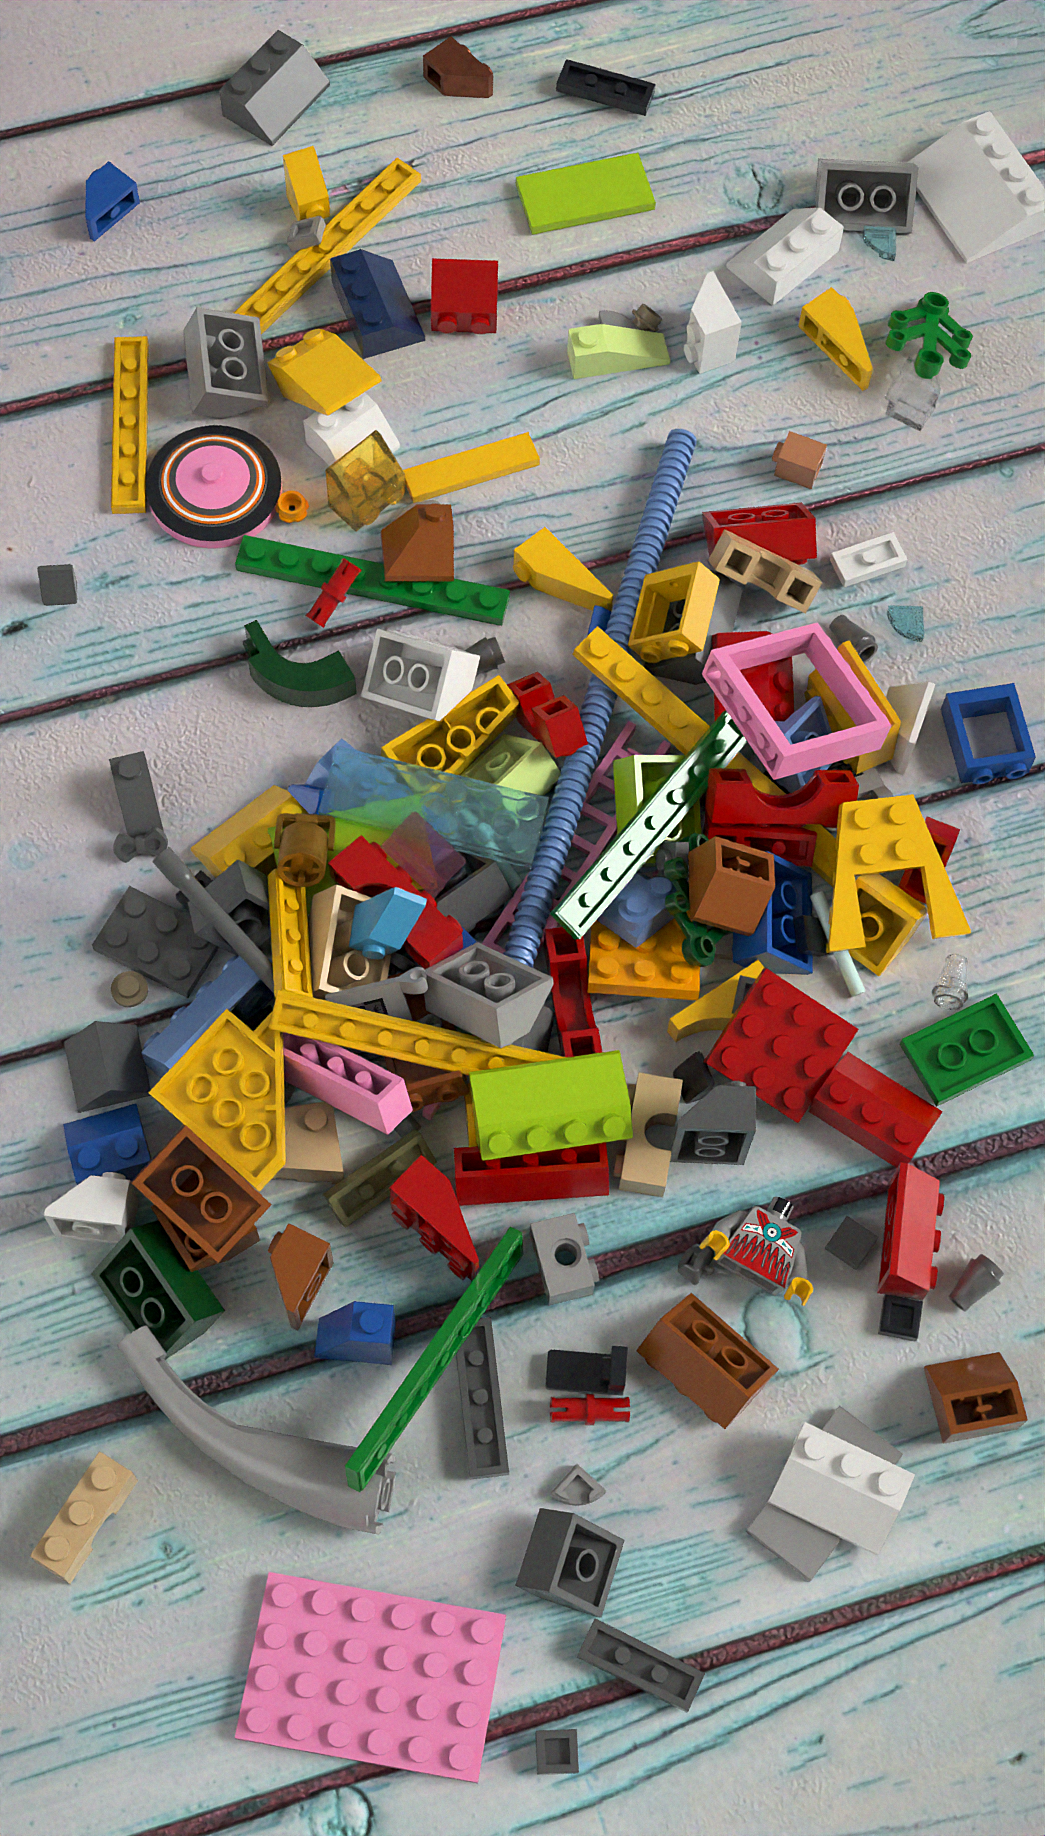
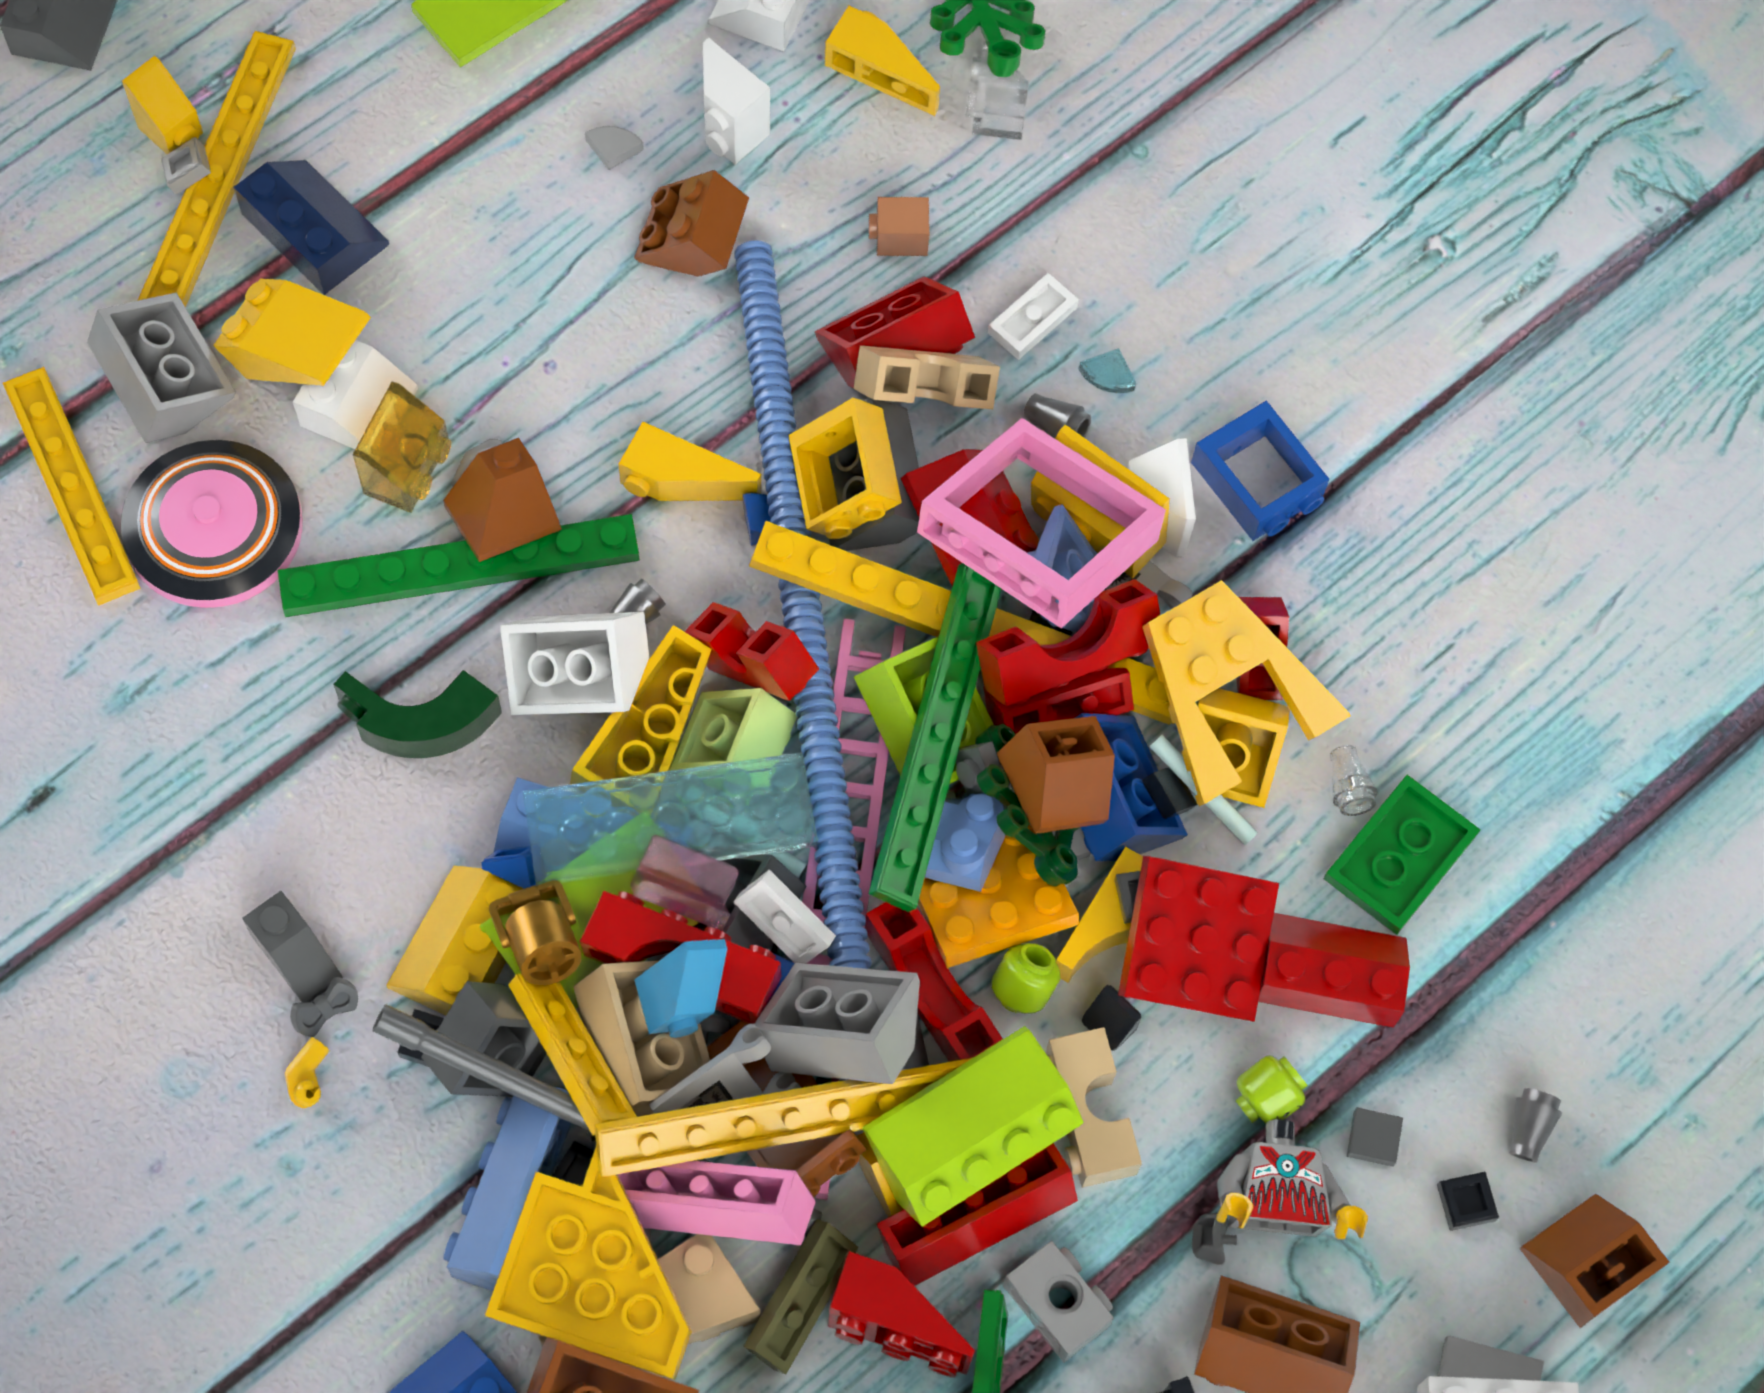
camera: 25 degrees left, 0 degrees up
(57, 584) = (73, 722): dark grey slope -> none
(104, 885) = (301, 1074): none -> yellow arm
(106, 1065) = (406, 1300): dark grey slope -> none
(129, 989) = (391, 1192): dark tan plate -> none
(155, 942) = (396, 1120): dark grey plate -> none
(292, 499) = (320, 502): light orange plate -> none
(333, 592) = (422, 600): red pin -> none
(464, 295) = (418, 174): red slope -> none
(471, 467) = (517, 381): yellow tile -> none
(483, 908) = (784, 918): none -> white plate
(614, 349) = (623, 174): yellowish green slope -> none
(642, 1023) = (1026, 978): none -> lime head
(646, 318) = (645, 121): dark tan plate -> none
(646, 403) = (692, 225): none -> dark orange slope
(717, 1127) = (1181, 1065): dark grey slope -> none
(787, 1176) = (1270, 1090): none -> lime head
(910, 1234) = (1437, 1100): slope -> none

